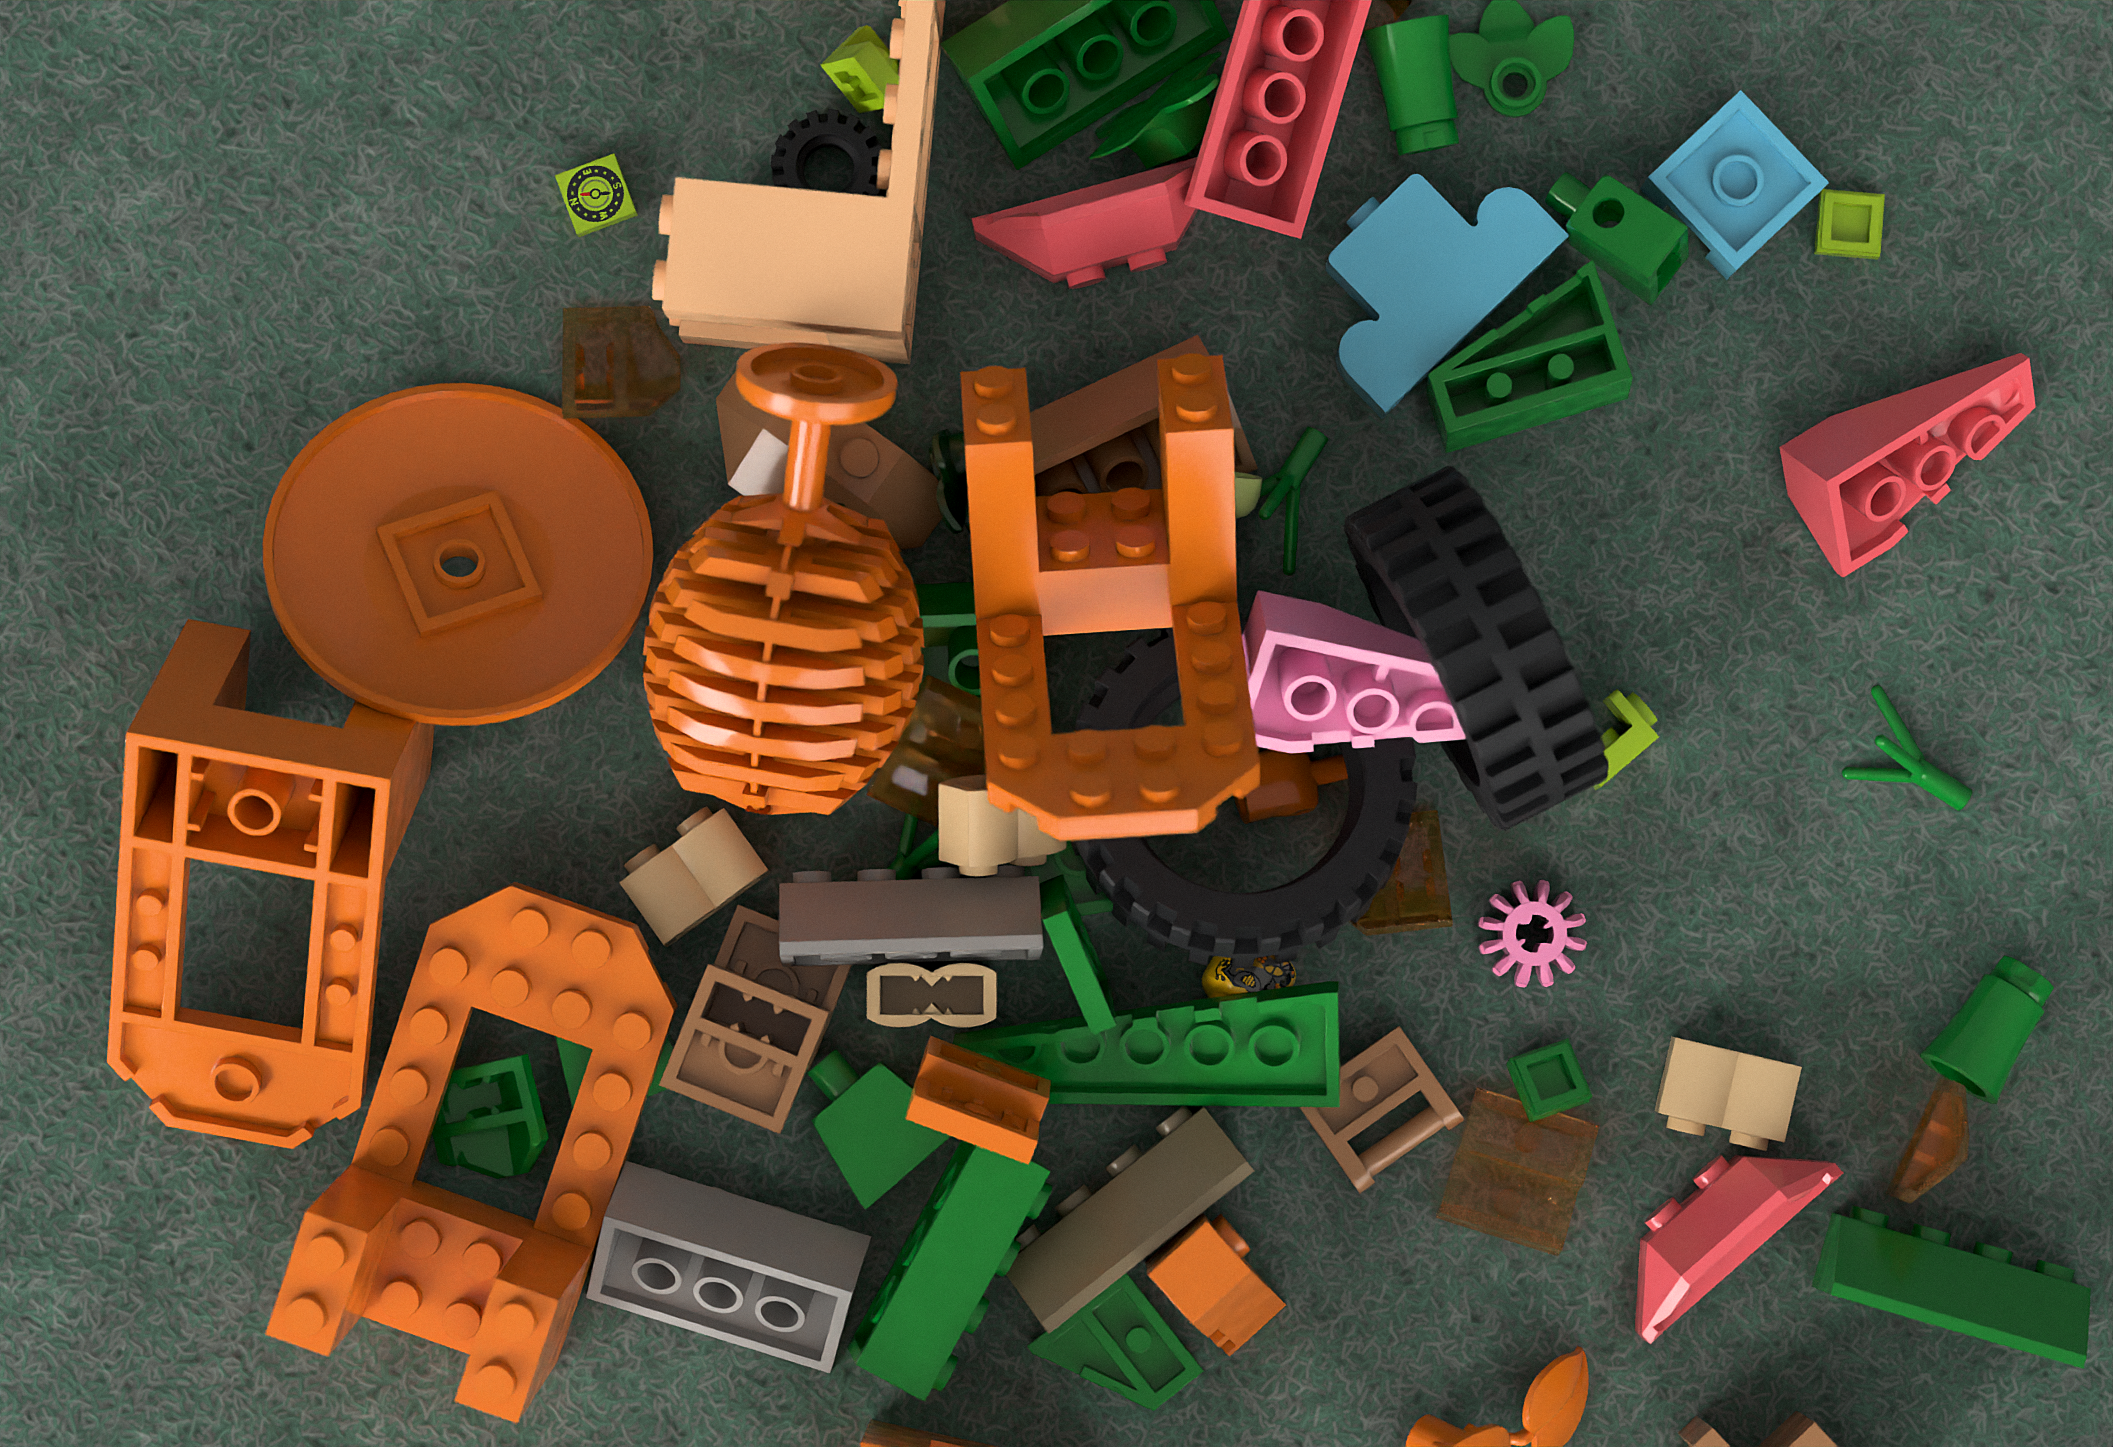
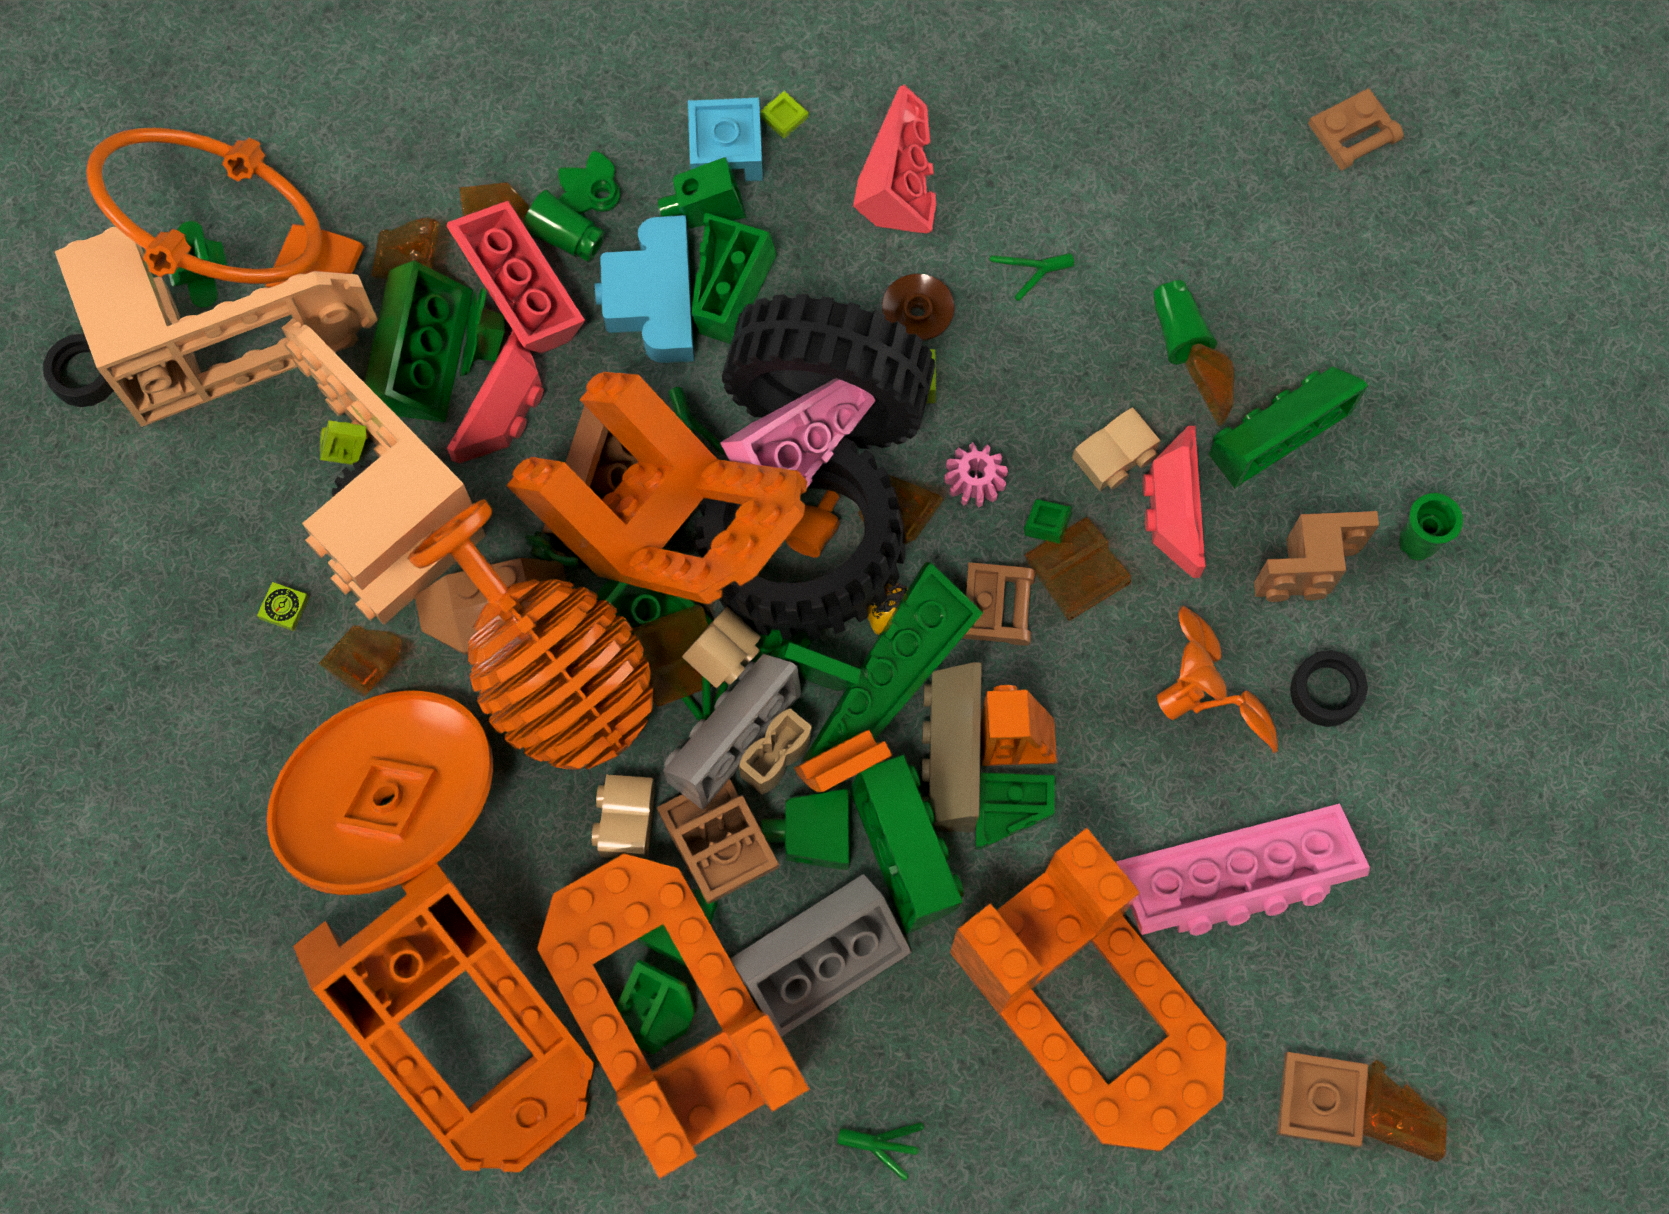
camera: 55 degrees left, 15 degrees down
(1742, 651) = (924, 293): none -> reddish brown dish

